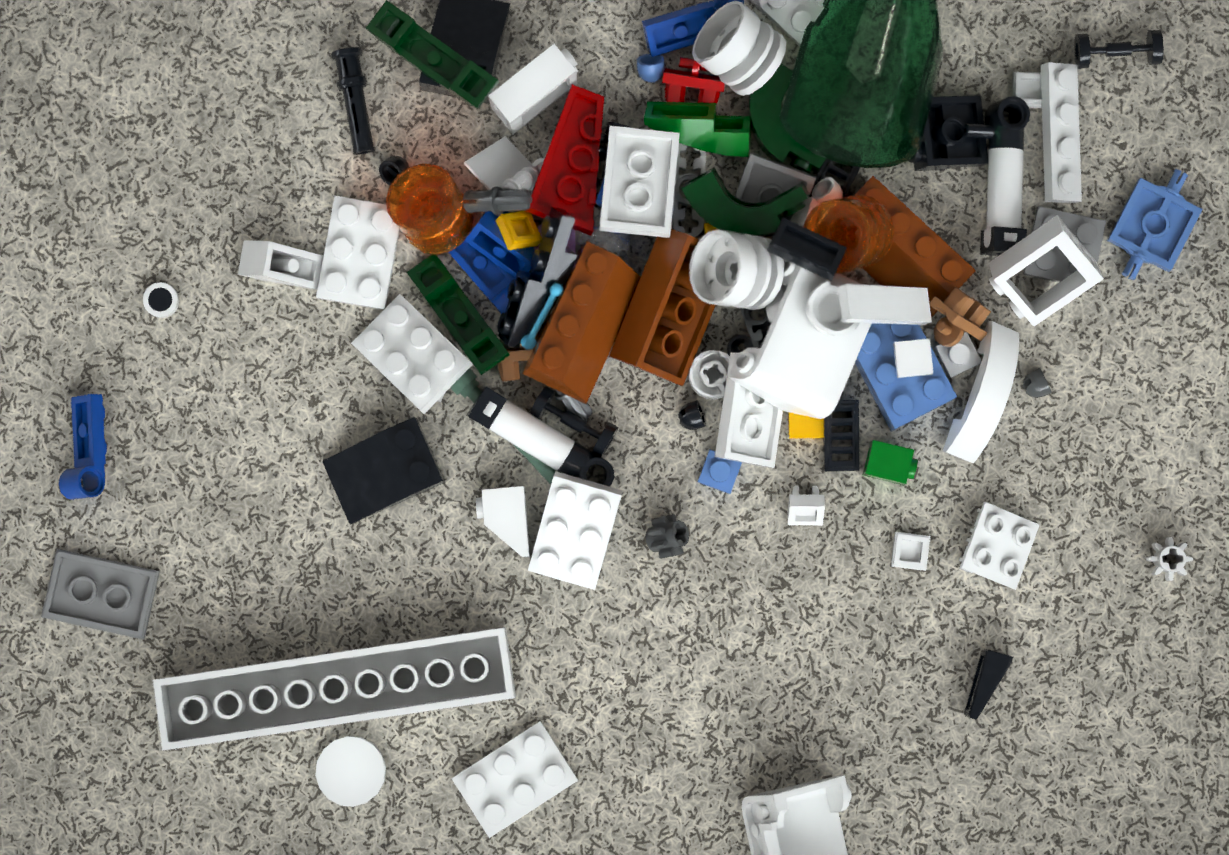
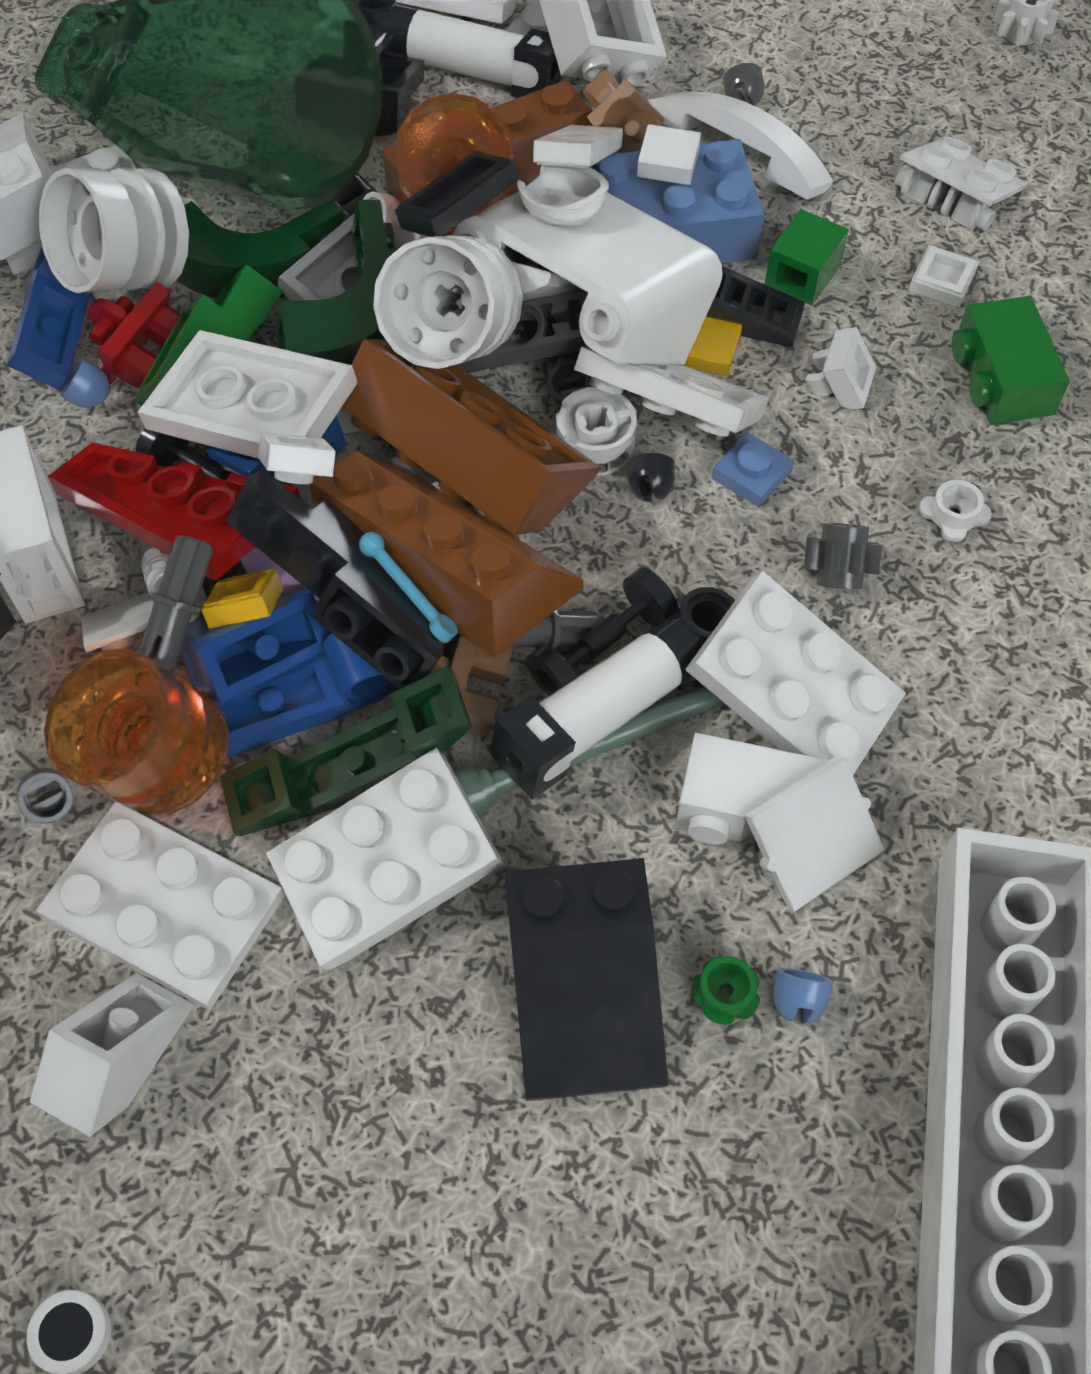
camera: 75 degrees left, 25 degrees down
(393, 539) = (729, 972): none -> green plate
(406, 574) = (801, 990): none -> medium blue hinge
(493, 561) = (815, 833): none -> white piece
(589, 232) = (296, 457): none -> white plate
(724, 583) = (957, 495): none -> white plate
(843, 602) = (1010, 360): none -> green brick

